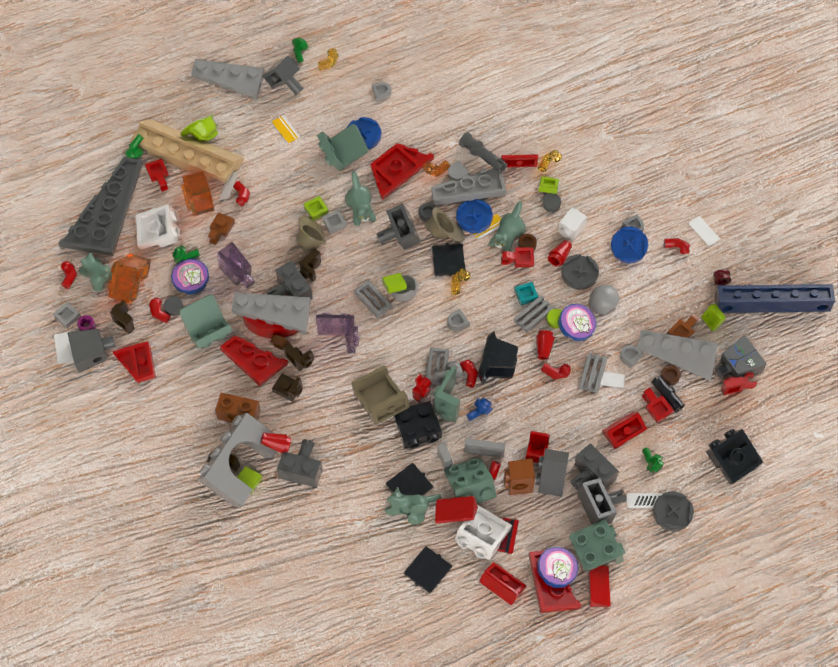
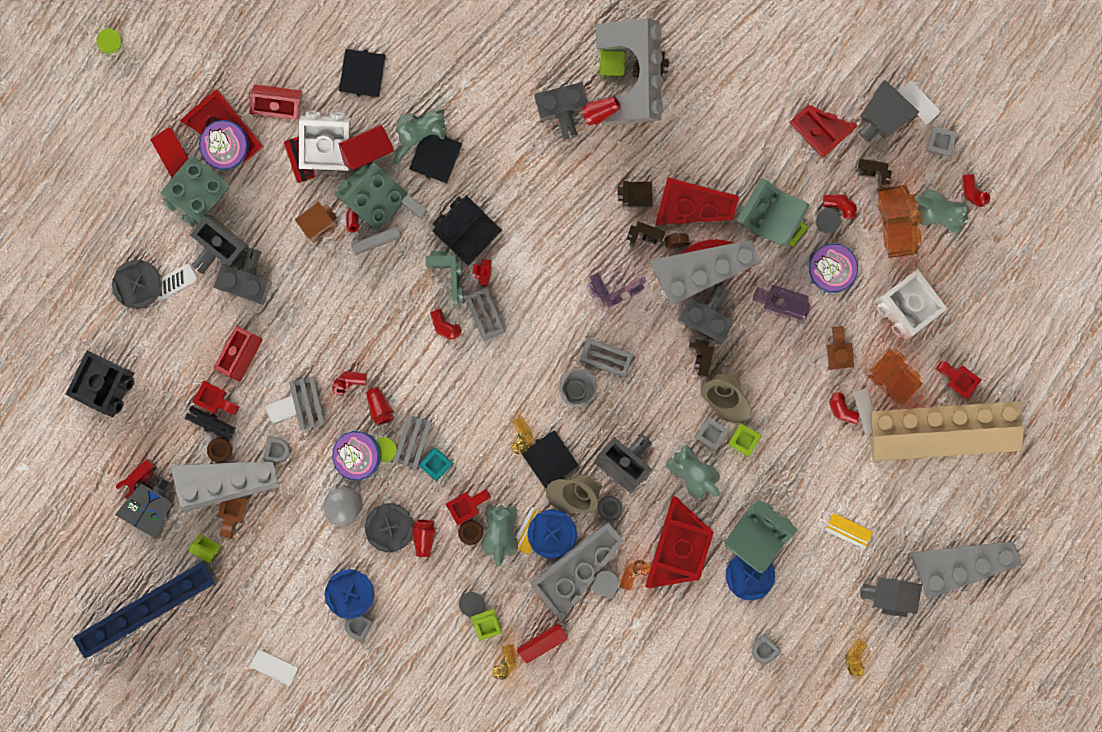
camera: 150 degrees right, 25 degrees up
(84, 319) = (908, 134): magenta bush -> none
(104, 216) = (984, 287): dark grey wing -> none
(133, 150) = (1007, 392): green plate -> none
(179, 254) = (859, 285): green plate -> none
(202, 129) = (941, 465): lime piece -> none
(230, 406) = (671, 132): dark orange brick -> none
(299, 45) = (904, 655): green plate -> none
(380, 395) = (525, 237): dark tan panel -> none
(394, 283) = (588, 380): lime tile -> none
(439, 375) = (462, 315): light grey plate -> none
(457, 321) = (494, 384): light grey tile -> none
(477, 149) = (598, 626): dark grey pin -> none
(483, 406) = (405, 291): blue plate -> none
(497, 359) = (420, 354): black piece -> none
(537, 444) = (318, 272): red bracket -> none
(553, 472) = (285, 249): dark grey brick -> none
(572, 224) = (429, 583): white brick -> none
(654, 462) = (183, 326): green plate -> none
(677, 242) = (293, 630): red arm -> none
(722, 277) = (220, 609): dark red bush -> none

